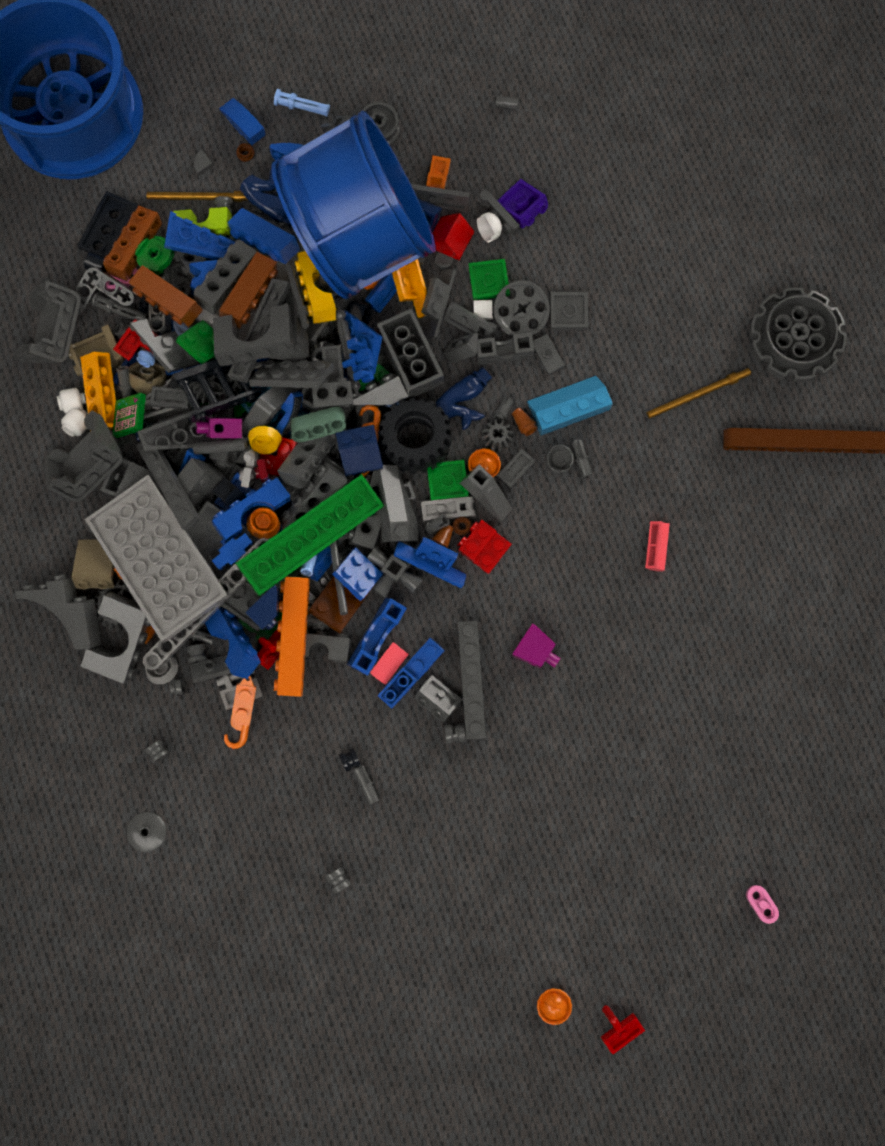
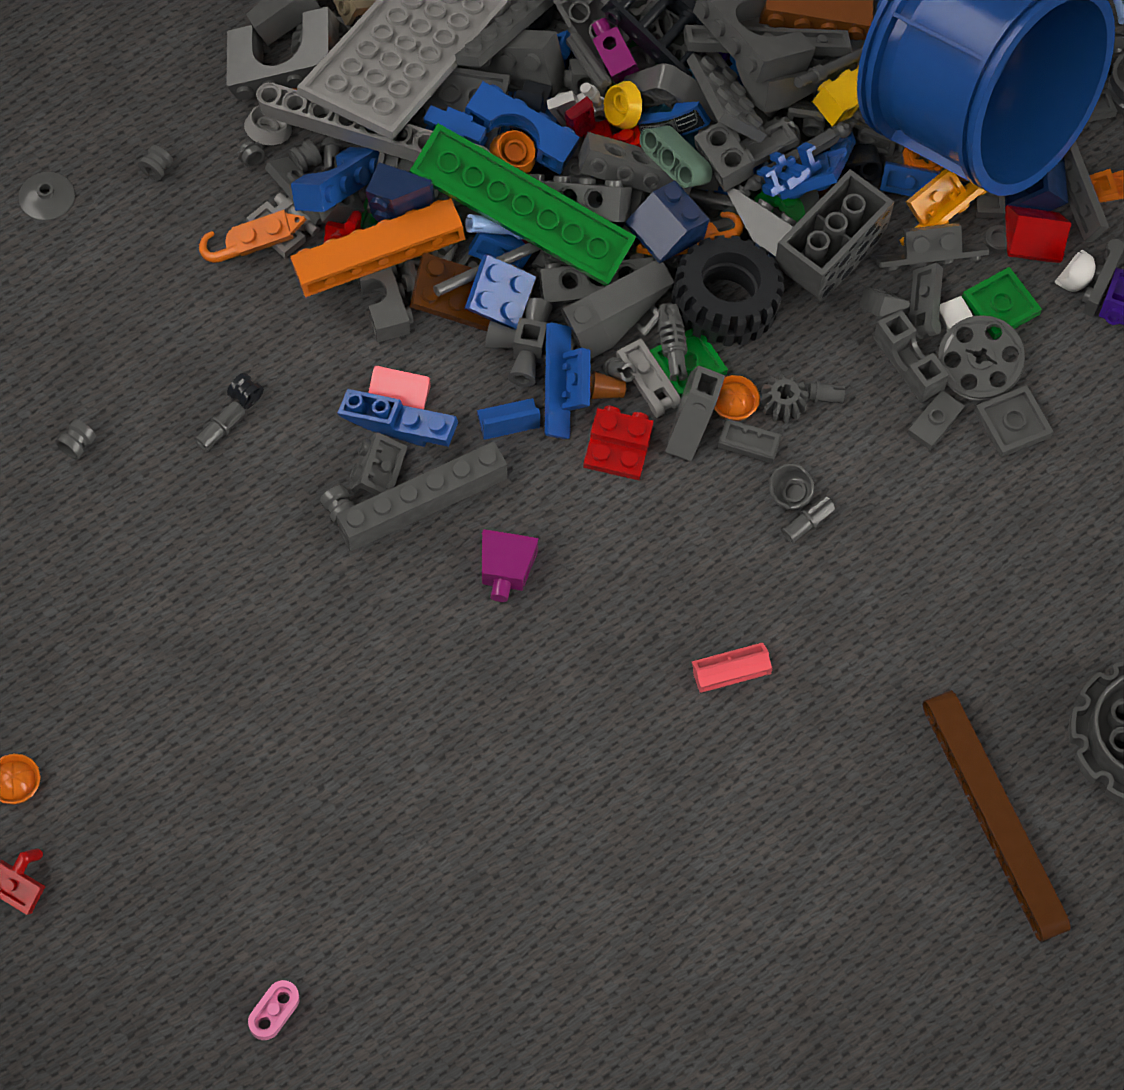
camera: 65 degrees right, 15 degrees down
(371, 642) = (438, 356): blue arch -> none
(433, 483) = (673, 340): none -> dark grey hinge
(437, 605) = (509, 418): none -> blue panel
(464, 390) = (823, 331): dark blue piece -> none
(466, 521) = (634, 397): reddish brown plate -> none
(524, 422) = (821, 426): dark orange cone -> none
(570, 405) = (875, 474): dark azure slope -> none
(730, 379) = (1032, 676): pearl gold bar -> none

